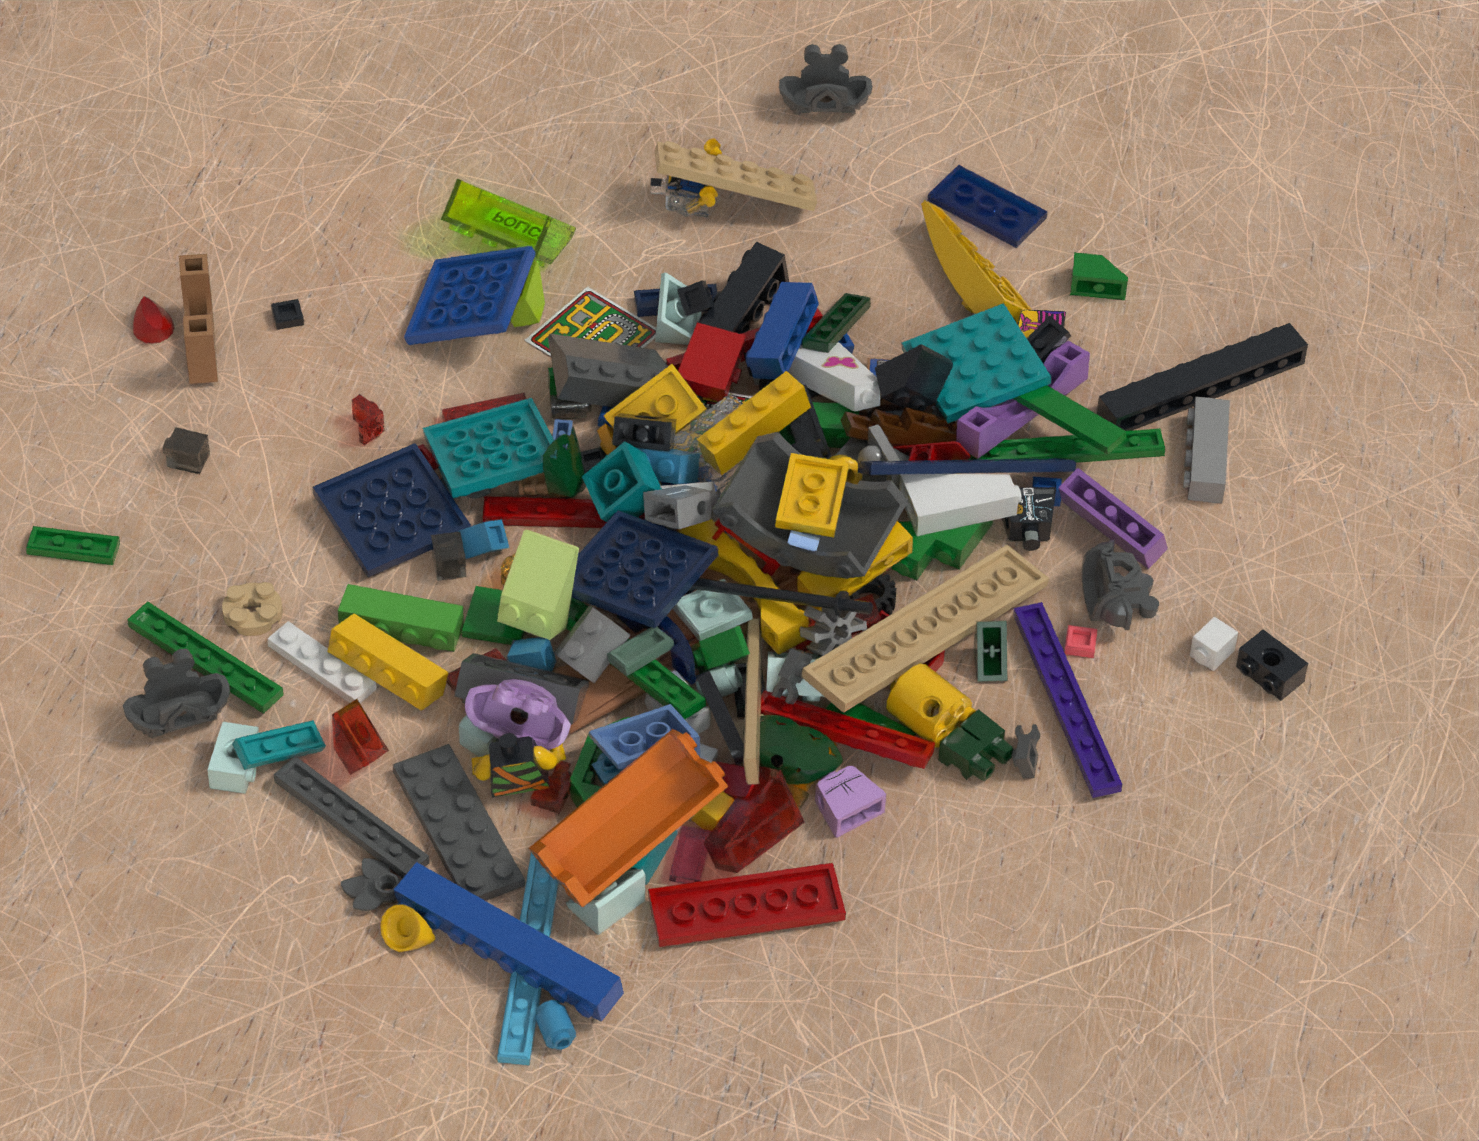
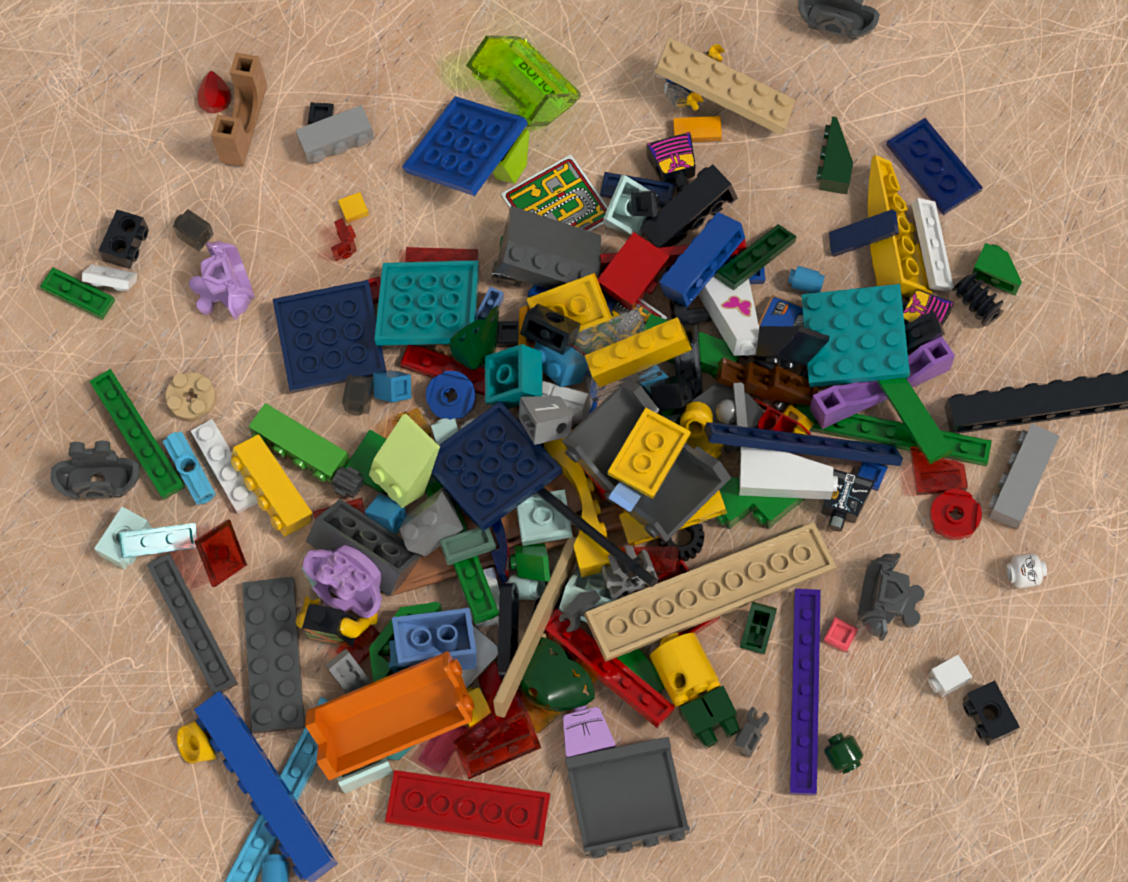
camera: 25 degrees right, 20 degrees up
(94, 520) = (111, 277): none -> white plate
(108, 478) = (117, 238): none -> black brick
(247, 485) = (222, 280): none -> lavender piece
(282, 669) = (182, 457): none -> medium azure piece
(313, 325) = (335, 134): none -> light grey brick
(363, 385) = (353, 207): none -> yellow tile
(370, 887) = (184, 690): dark grey plate -> none
(473, 637) = (347, 482): none -> dark grey gear
(551, 804) = (347, 672): none -> light grey tile
(558, 514) = (444, 383): none -> blue plate
(704, 259) = (673, 159): none -> torso
(718, 231) = (700, 128): none -> light orange tile
(884, 223) = (838, 164): none -> dark green slope
(896, 332) = (806, 280): none -> dark azure brick
(916, 845) = (627, 797): none -> dark grey panel
(942, 273) = (863, 233): none -> dark blue tile
(1017, 270) = (932, 245): none -> white plate
(1089, 306) = (978, 299): none -> black piece
(1113, 518) = (912, 525): medium lavender brick -> none
(1117, 471) = (937, 476): none -> clear red wing
(1133, 741) = (843, 753): none -> dark green head
(1151, 487) = (967, 506): none -> red plate
(1249, 529) = (1026, 570): none -> white head

